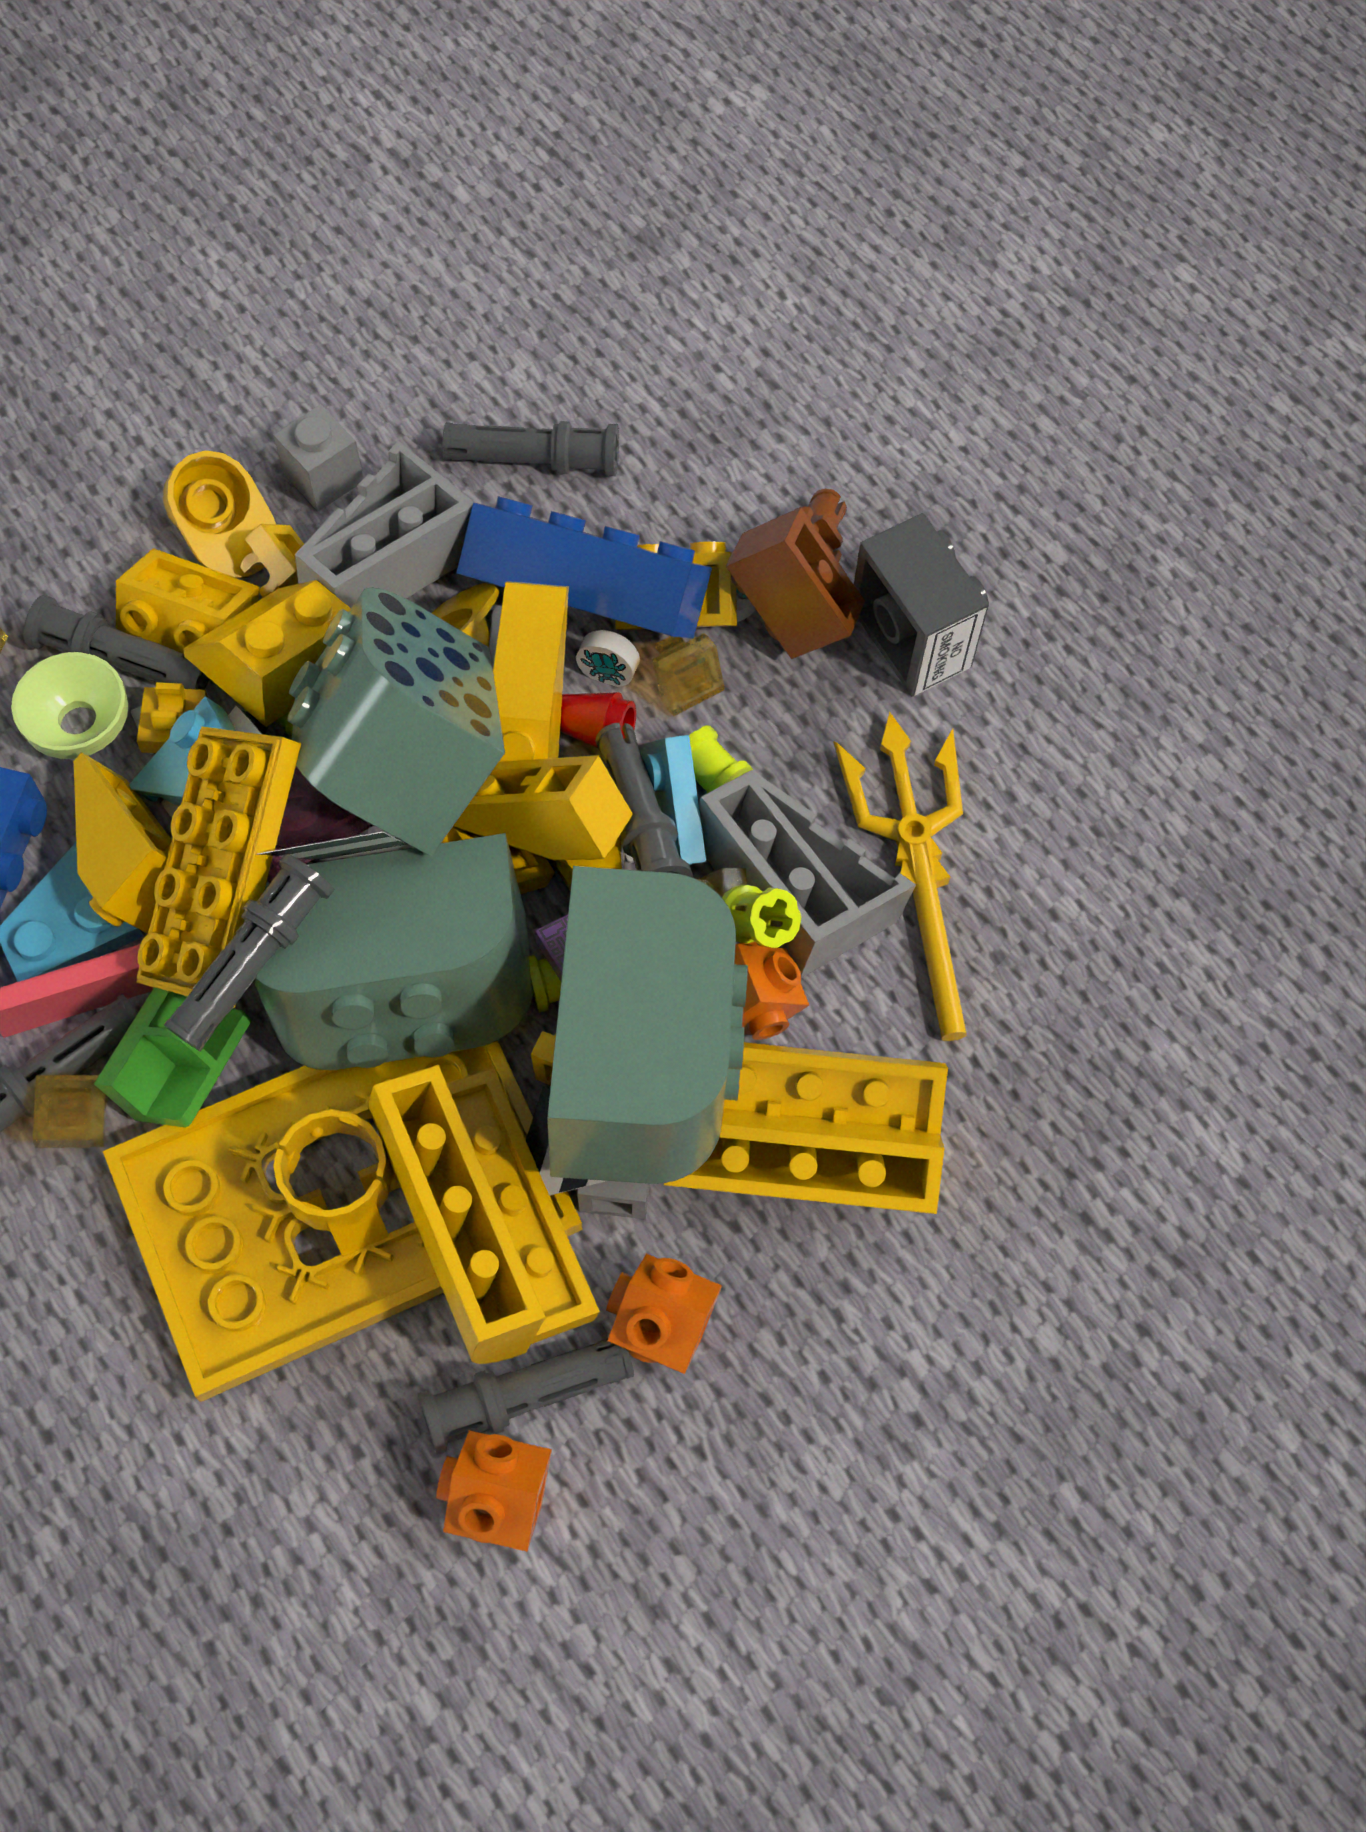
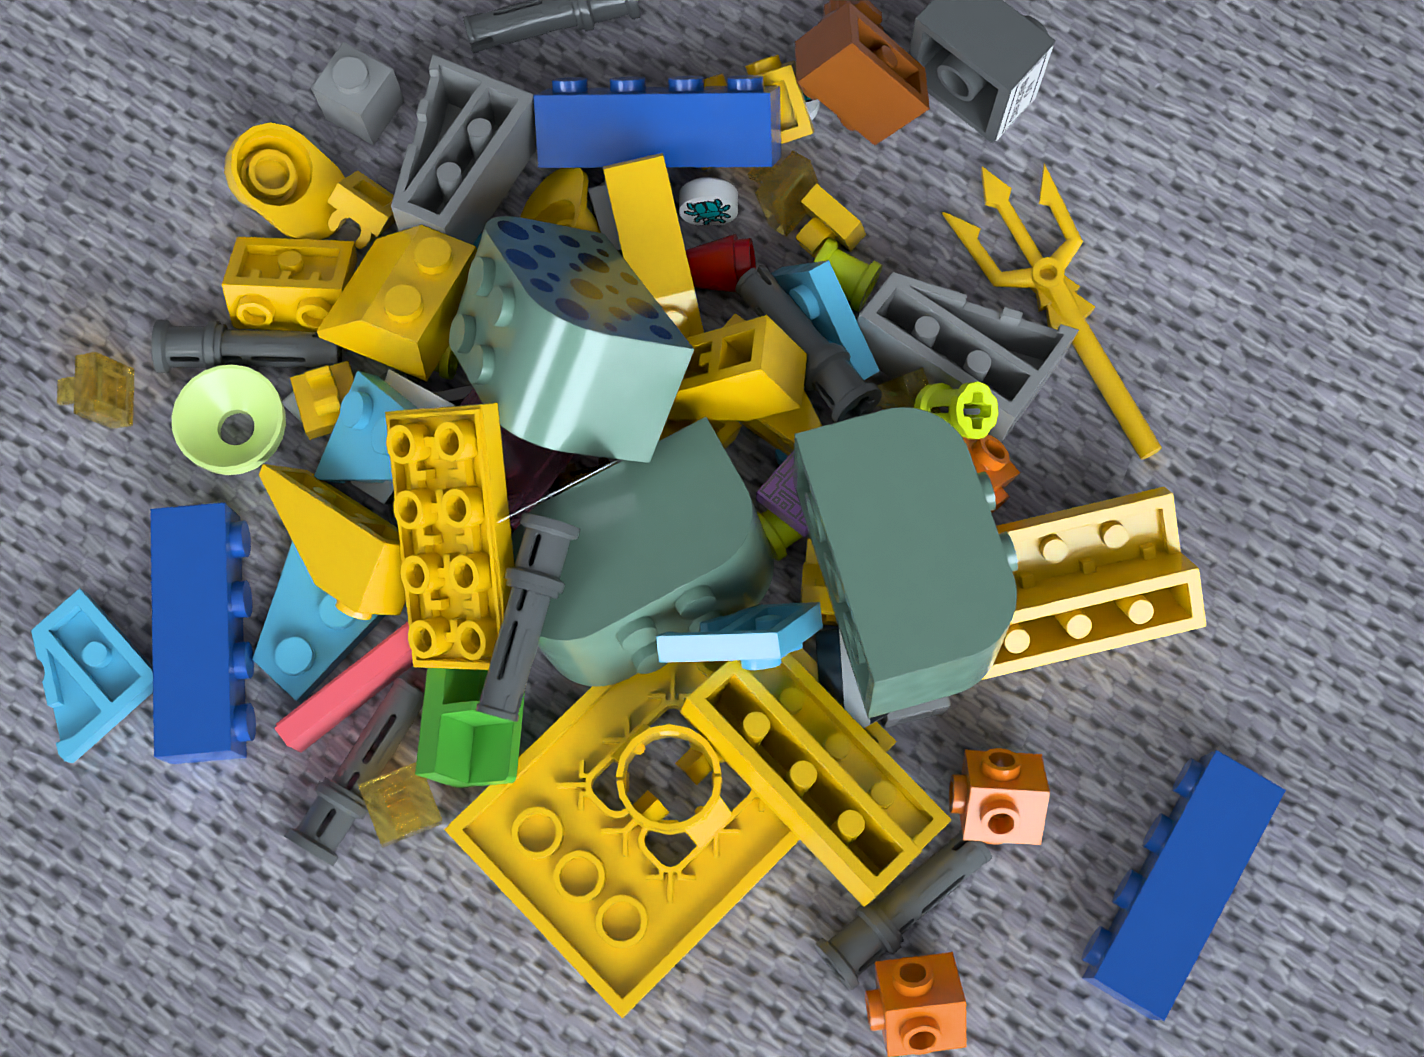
camera: 15 degrees left, 10 degrees up
(460, 1054) = (753, 635): none -> medium azure wing
(716, 711) = (828, 221): none -> yellow tile
(816, 1469) = (1182, 884): none -> blue brick

